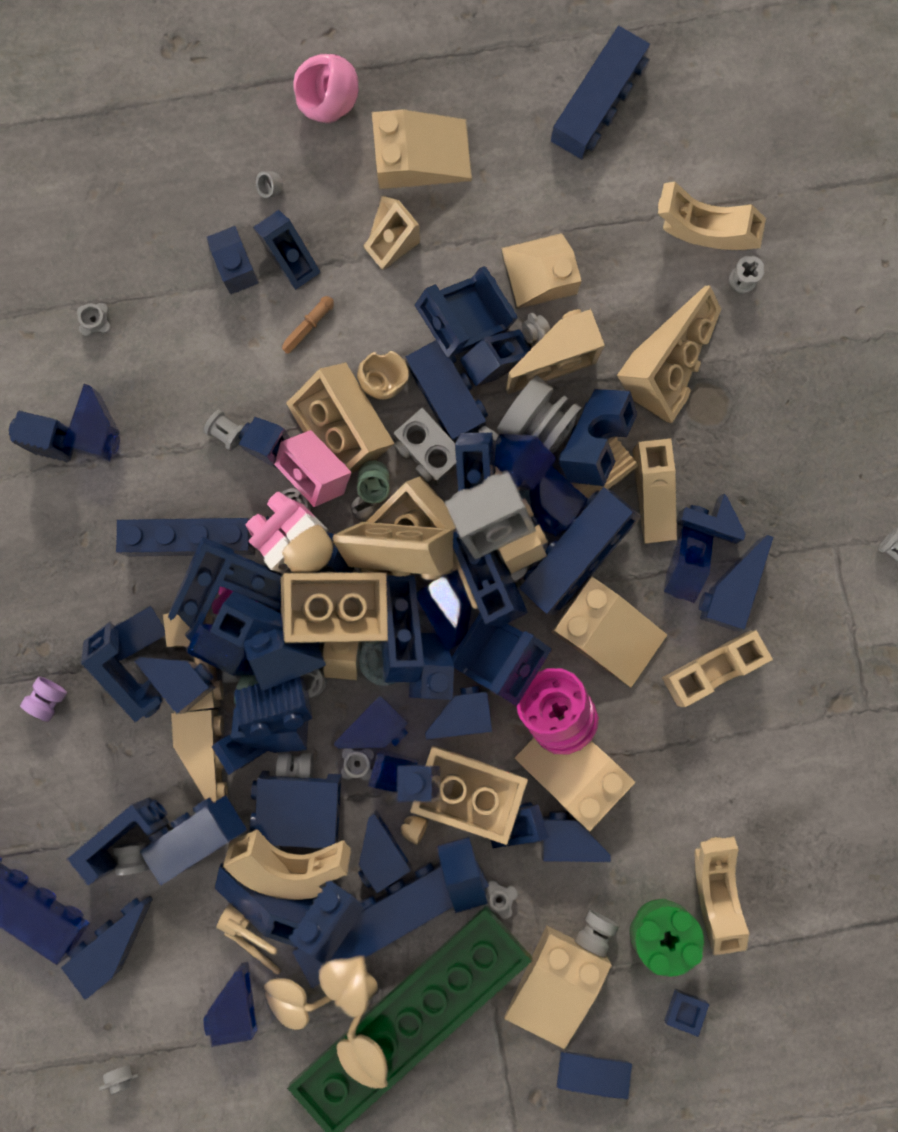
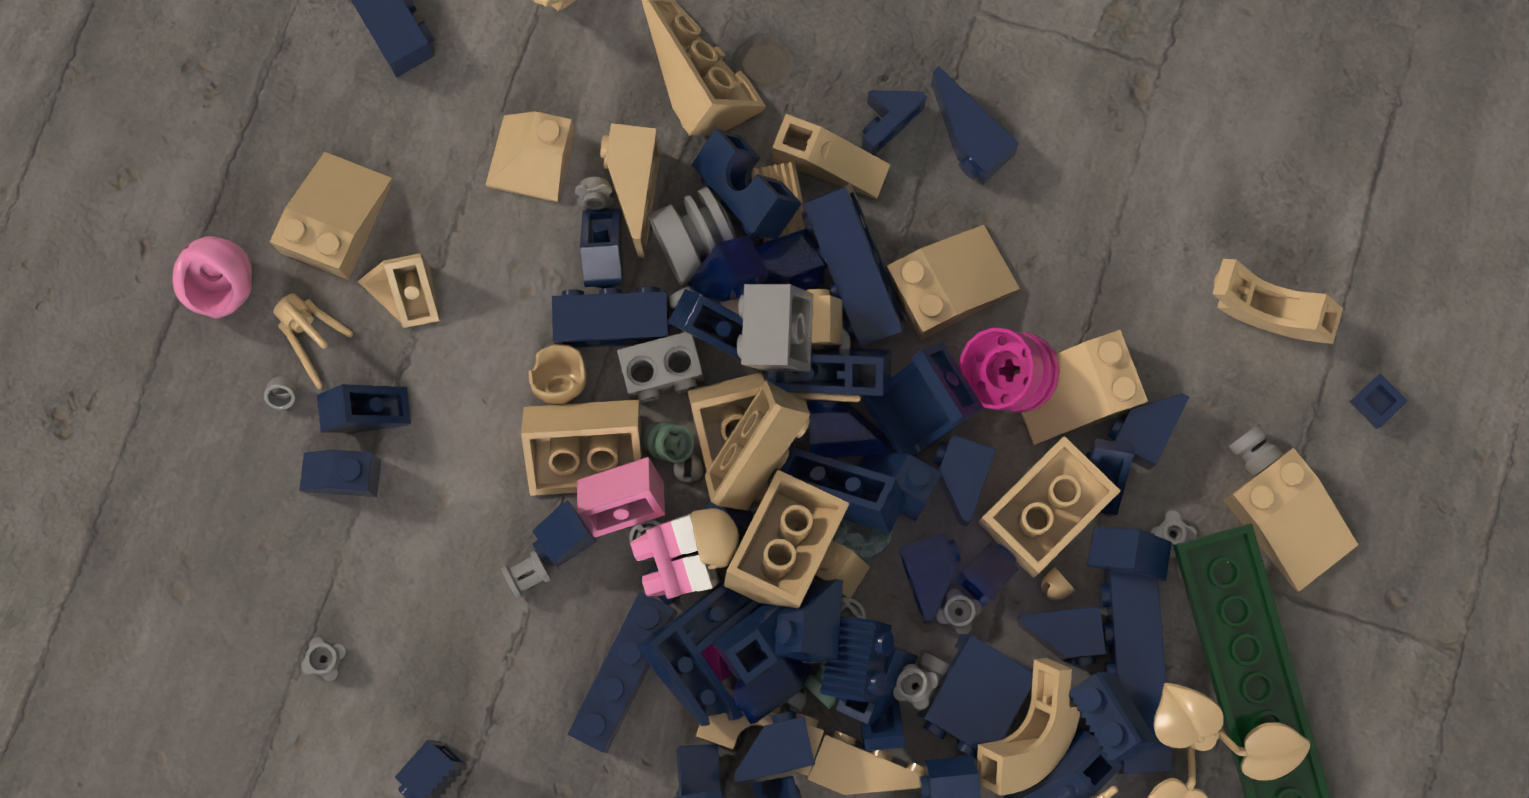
camera: 60 degrees left, 5 degrees down
(92, 427) = (447, 716): clear blue slope -> none
(275, 751) = (911, 676): none -> light grey plate
(311, 320) = (457, 430): medium nougat piece -> none
(328, 166) = (297, 317): none -> tan plant
(418, 784) = (1014, 545): dark blue brick -> none
(466, 312) = (538, 253): dark blue panel -> none
(594, 1075) = (1398, 526): dark blue slope -> none
(684, 945) = (1311, 370): green brick -> none
(689, 564) = (923, 164): clear blue slope -> none
(716, 667) = (1043, 207): tan arch -> none

